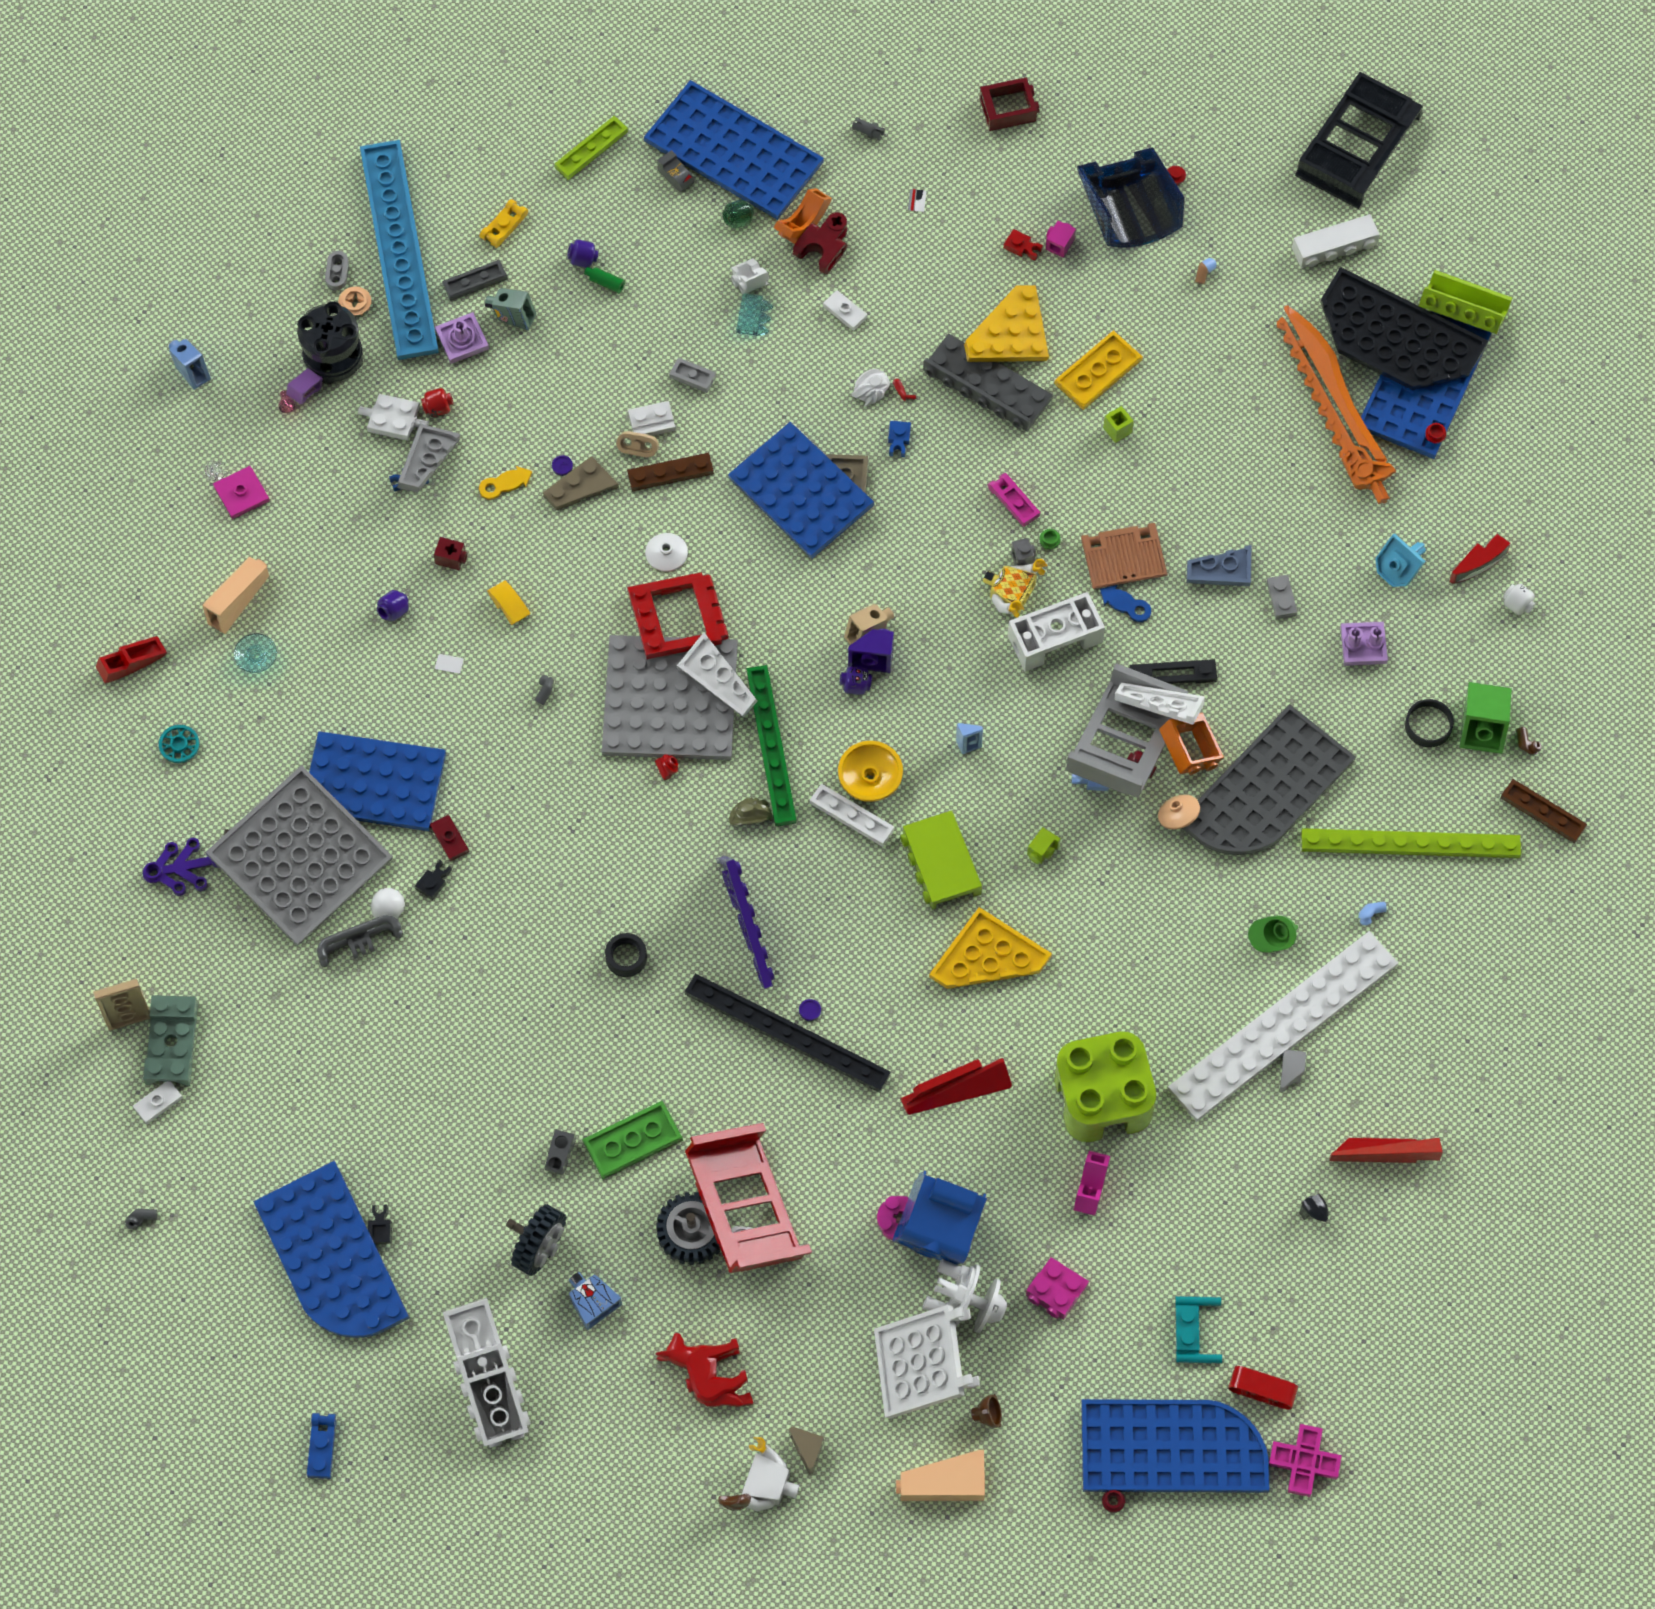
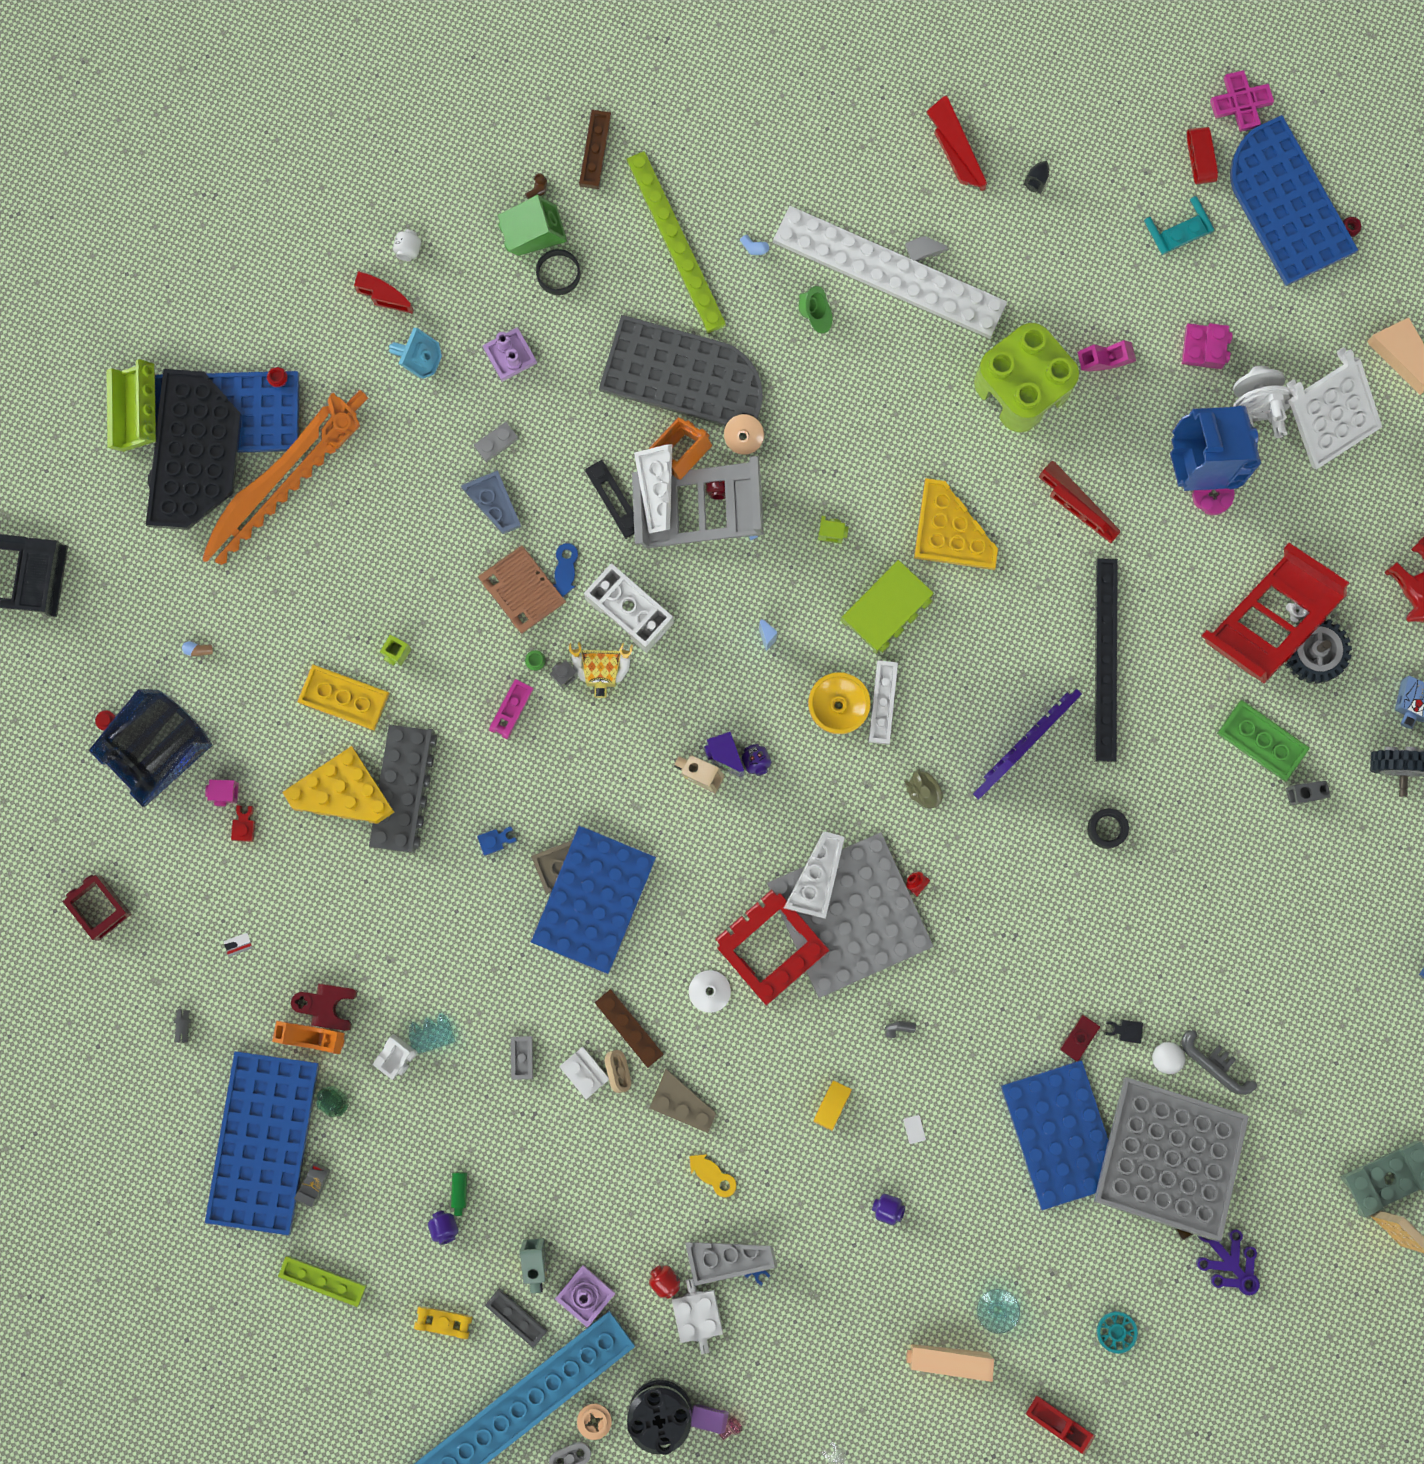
camera: 115 degrees left, 15 degrees up
(241, 492) = (843, 1418): dark pink plate -> none
(450, 553) = (818, 1191): dark red brick -> none
(562, 465) = (669, 1131): dark purple piece -> none
(771, 746) = (853, 802): green plate -> none
(810, 1010) = (1073, 653): dark purple piece -> none
(845, 310) = (387, 952): white plate -> none
(871, 386) = (455, 889): white hat -> none
(901, 391) = (447, 861): red piece -> none
(988, 1412) = (1330, 349): reddish brown piece -> none
(1335, 241) = (114, 547): white brick -> none

